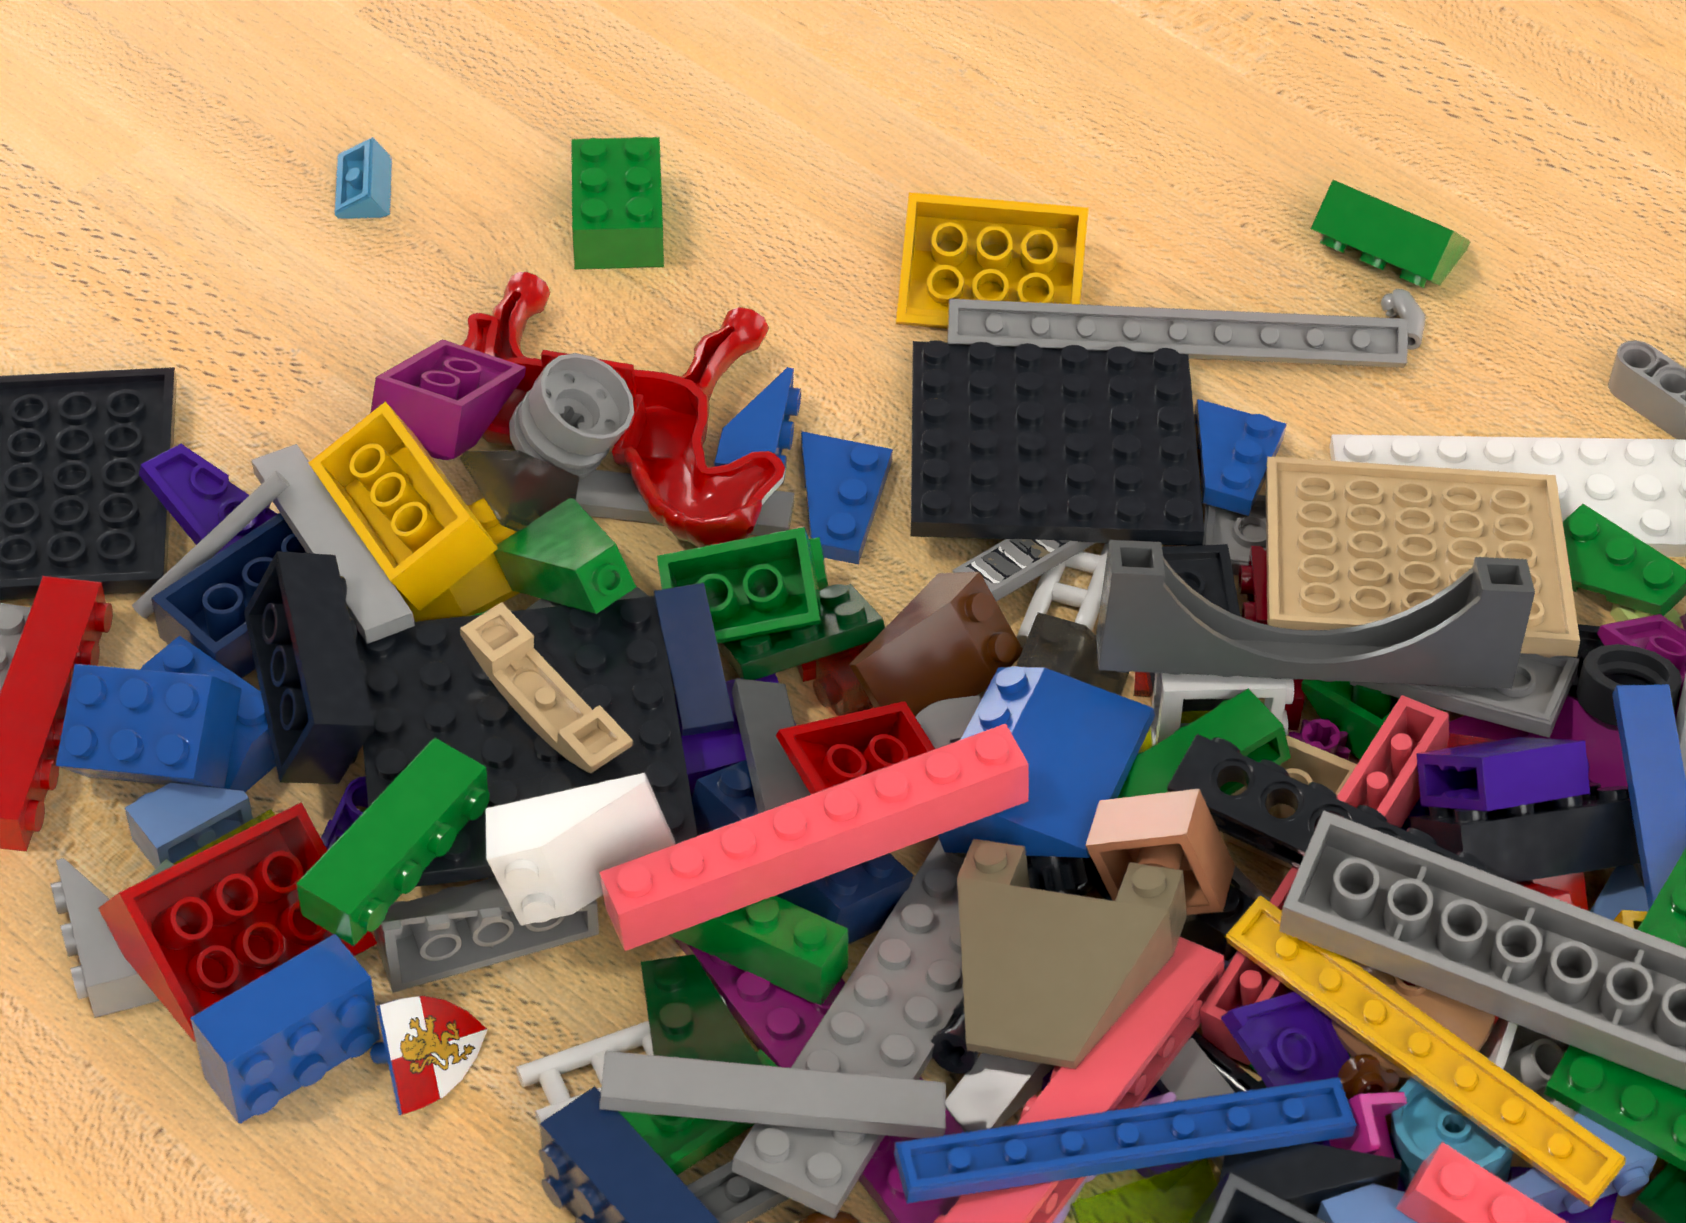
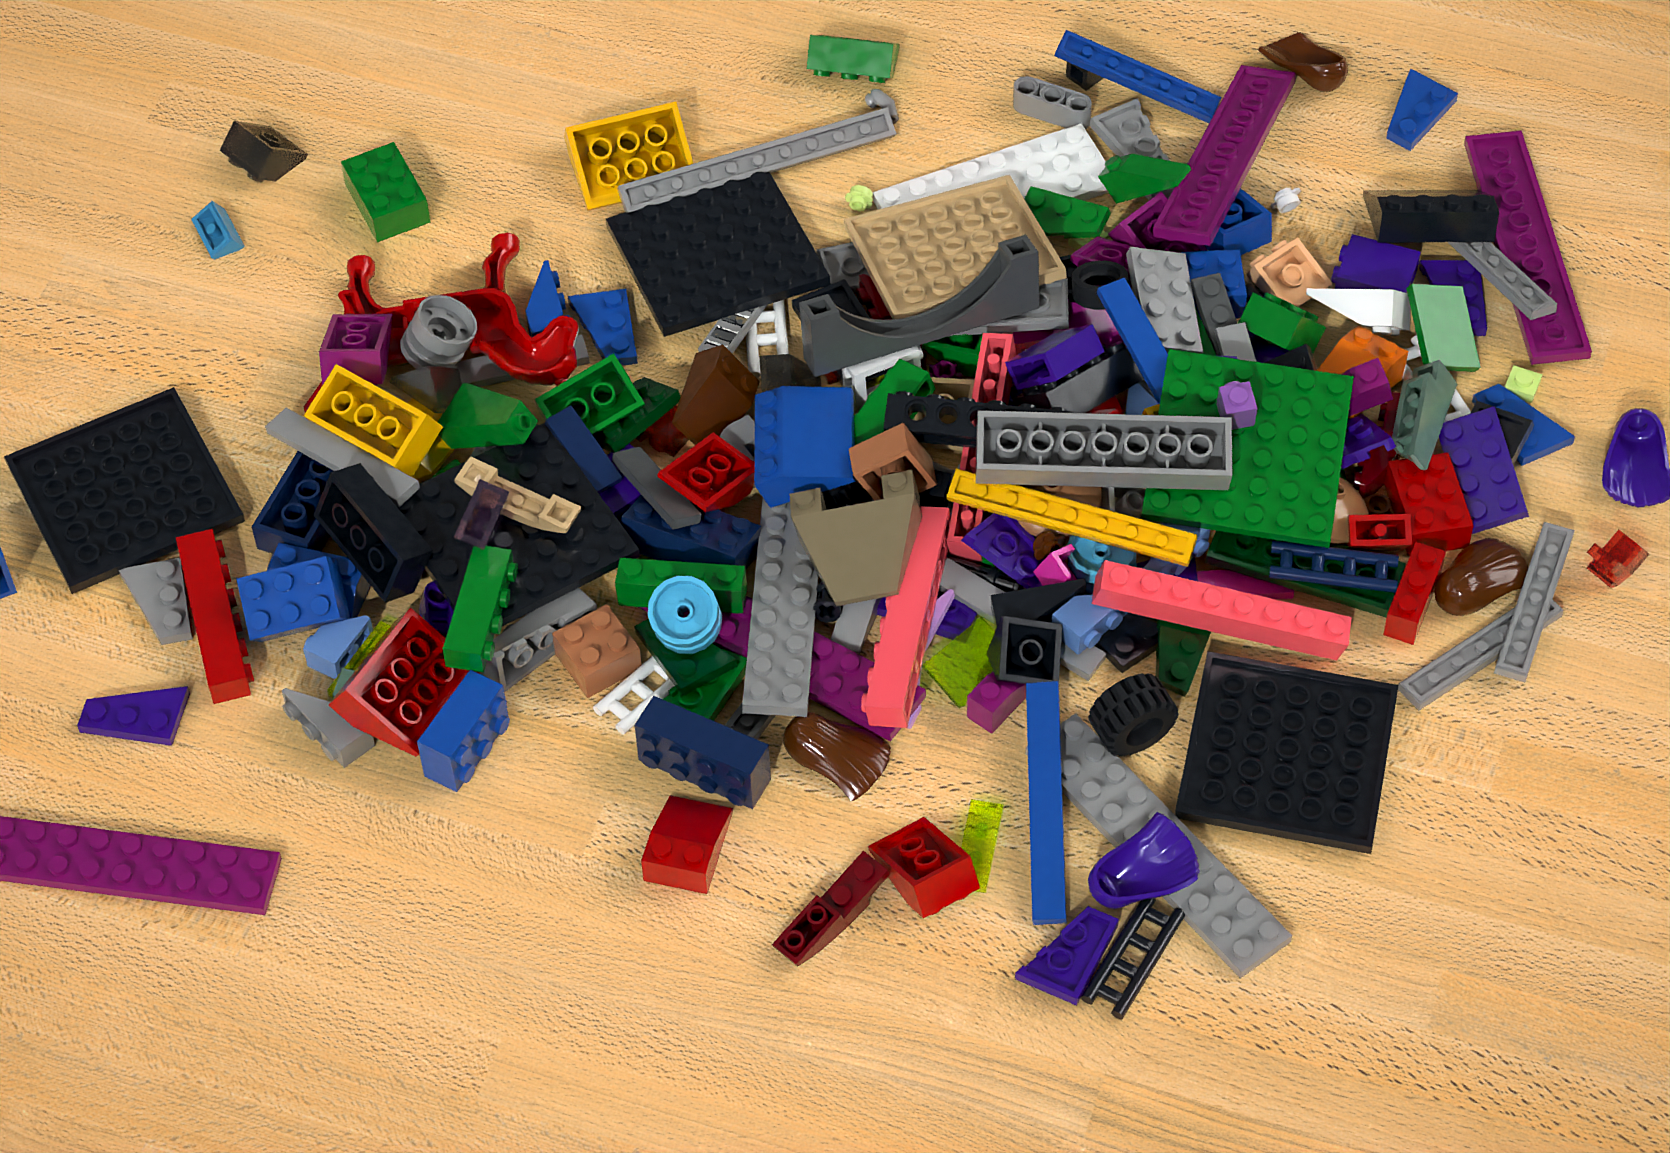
camera: 20 degrees left, 5 degrees up
(196, 492) = (246, 463): dark purple wing -> none
(216, 539) = (265, 484): light grey bar -> none
(426, 1048) = (543, 712): shield -> none
(460, 699) = (483, 515): none -> clear purple slope
(478, 95) = (261, 151): none -> clear smoke slope
(557, 843) = (580, 574): white slope -> none
(564, 980) = (596, 651): none -> nougat brick
(710, 972) = (667, 611): none -> medium azure wheel
(773, 1095) = (748, 665): light grey tile -> none
(815, 836) = (709, 521): coral brick -> none
(1123, 1140) = (941, 620): blue tile -> none
(1234, 454) = (823, 223): blue wing -> none
(1308, 436) = (859, 198): none -> yellowish green plate

